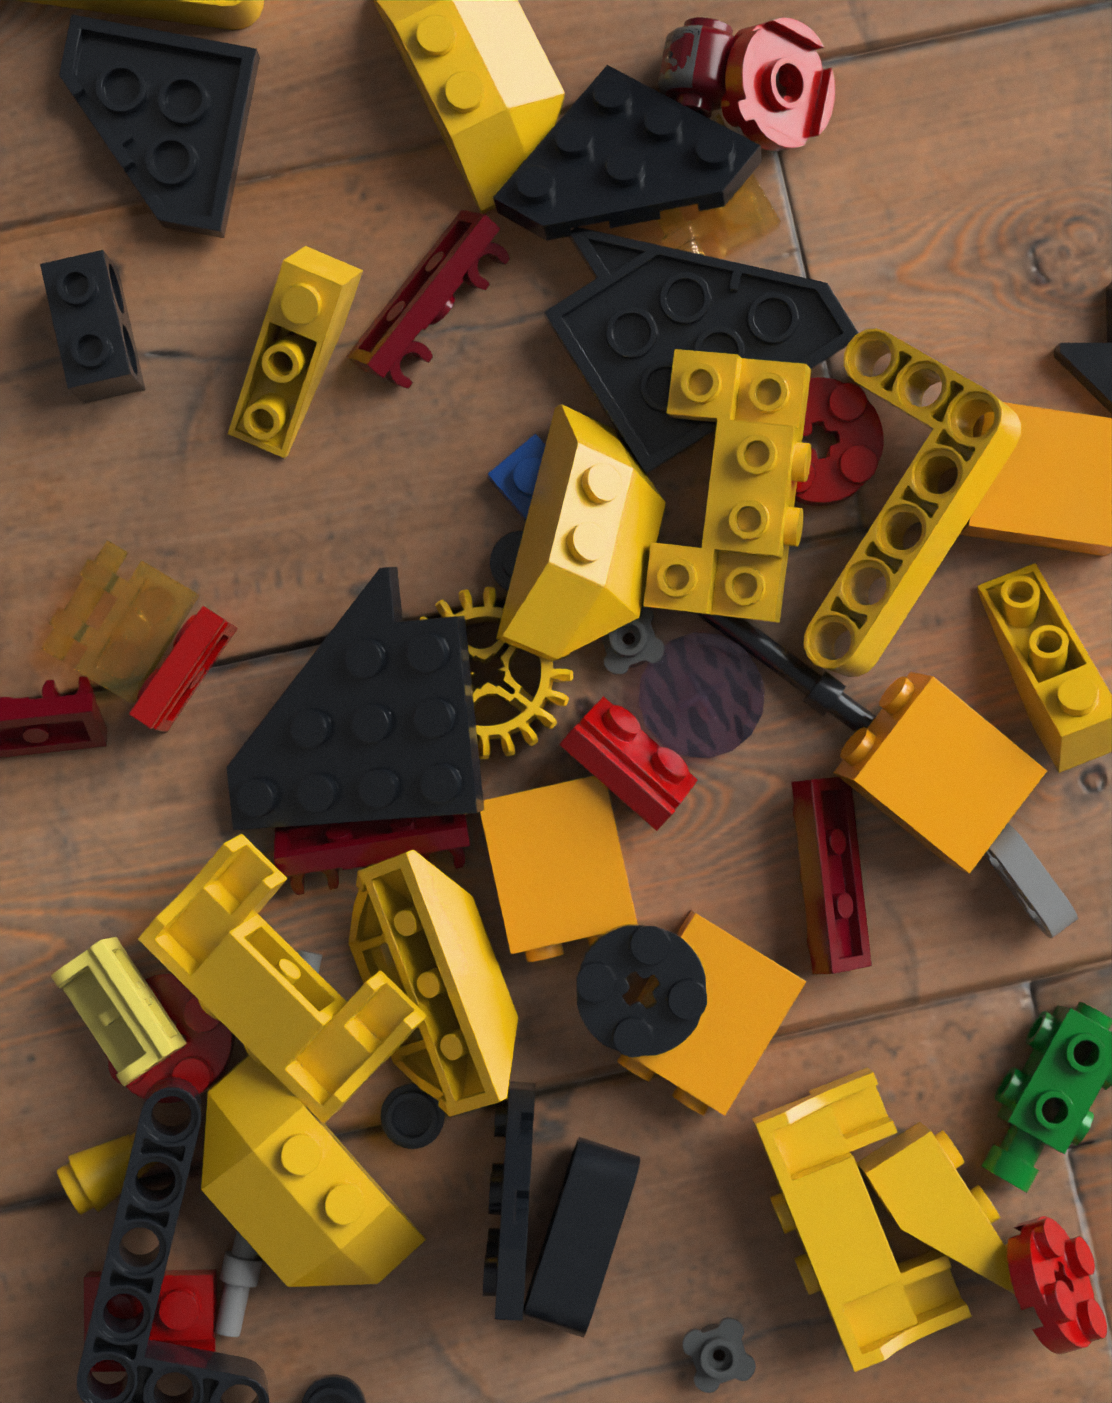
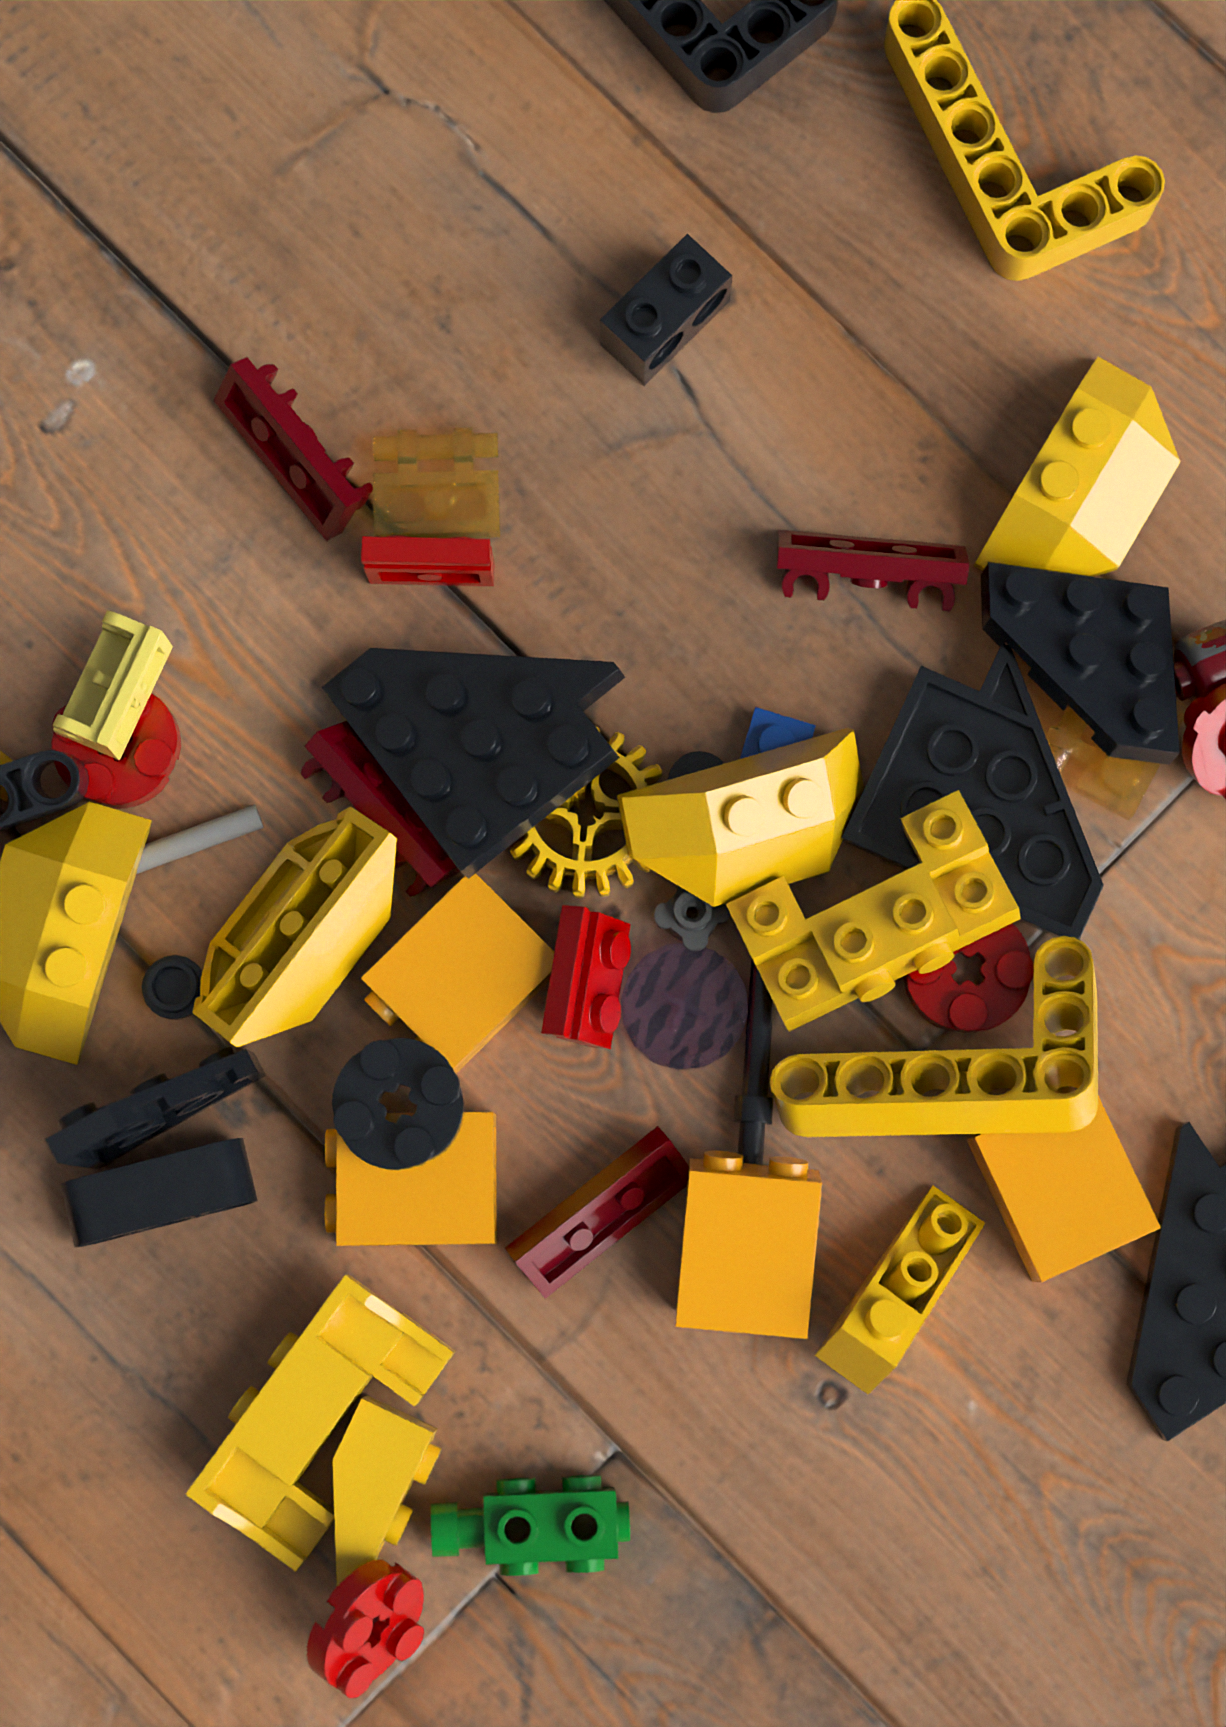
camera: 65 degrees right, 5 degrees down
(167, 112) = (882, 257): black plate -> none
(268, 991) = (203, 796): yellow bracket -> none
(293, 348) = (757, 481): yellow slope -> none
(724, 1336) = (148, 1371): dark grey plate -> none
(1030, 882) = (704, 1388): light grey beam -> none

